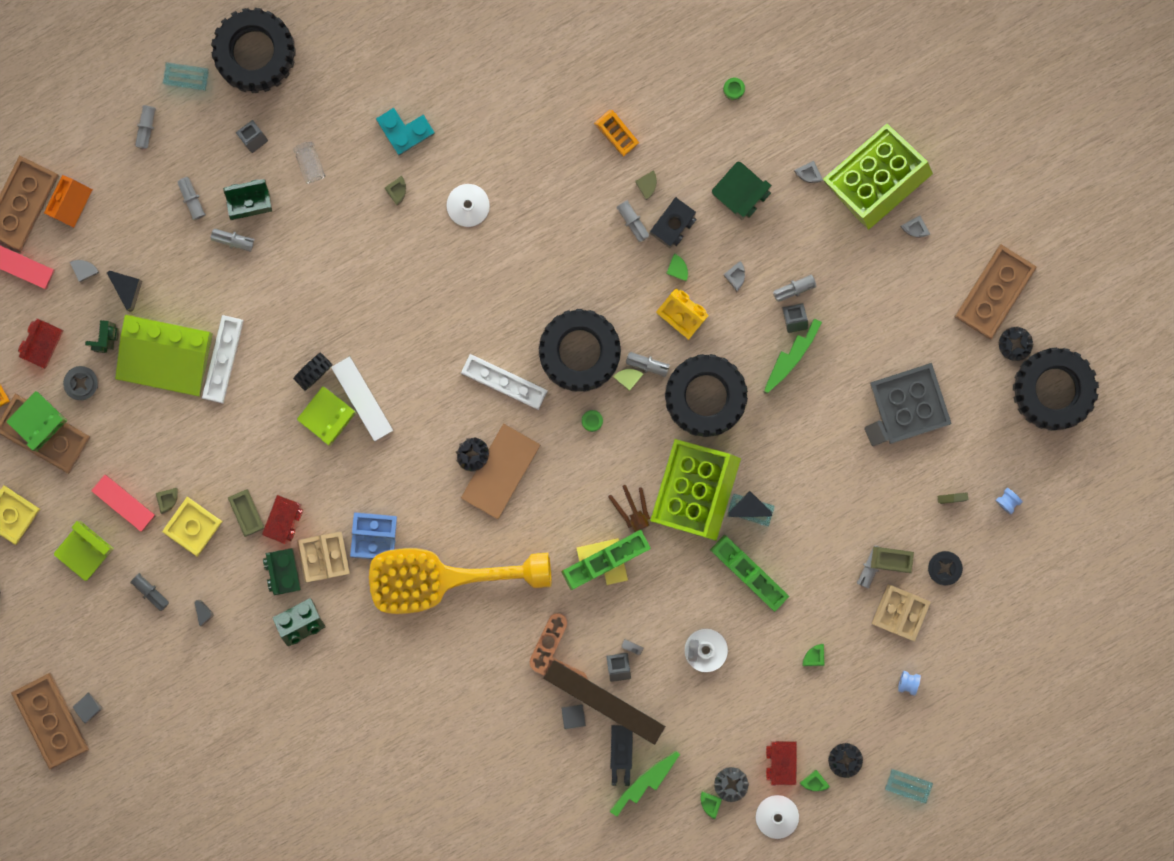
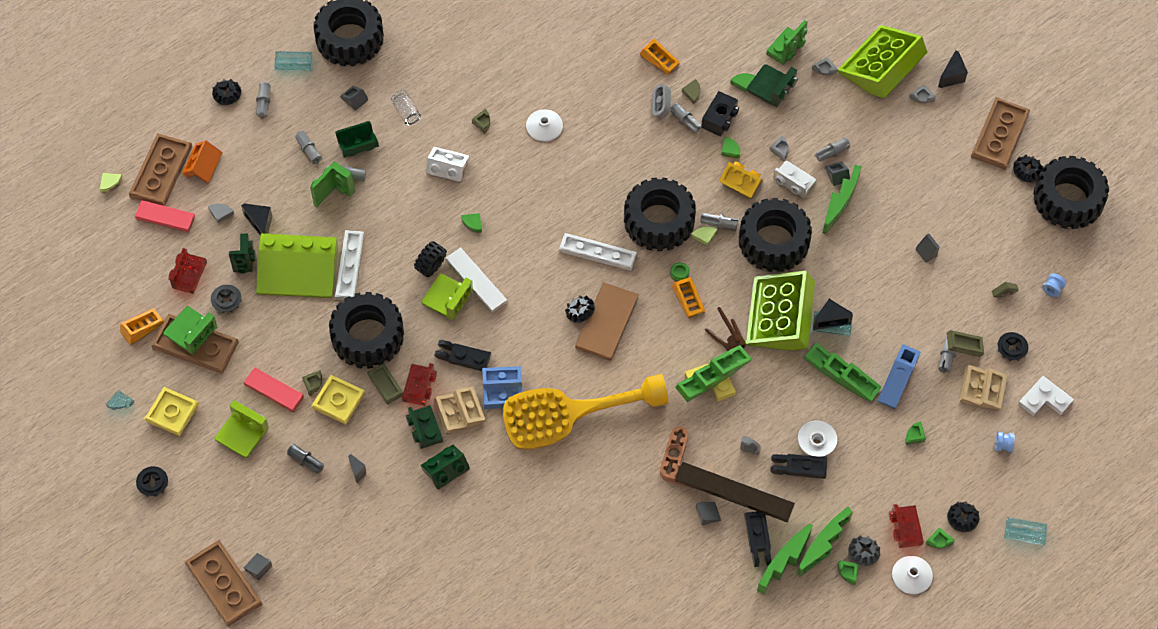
camera: 10 degrees left, 25 degrees down
(106, 118) = (230, 97): none -> black gear
(202, 458) = (365, 308): none -> black tyre
(211, 250) = (333, 177): none -> bright green bracket
(337, 492) = (463, 355): none -> black hinge
(348, 243) = (446, 164): none -> white bracket
(367, 324) = (472, 221): none -> bright green tile
(404, 136) = (481, 81): teal plate -> none
(603, 453) = (694, 295): none -> light orange slope
(607, 195) = (661, 101): none -> light grey plate
(618, 667) = (741, 467): dark grey slope -> none
(683, 678) = (800, 465): none -> black hinge
(683, 777) = (822, 546): none -> bright green slope
(693, 650) = (806, 435): light grey tile -> none
(709, 179) = (742, 80): none -> bright green tile
(734, 88) = (750, 16): bright green tile -> none
(743, 319) = (794, 179): none -> white bracket
(769, 136) = (787, 43): none -> bright green bracket
(809, 591) = (899, 376): none -> medium blue slope
(910, 403) = (951, 221): dark grey plate -> none
(959, 204) = (954, 72): none -> black slope
(967, 628) = (1045, 393): none -> white plate

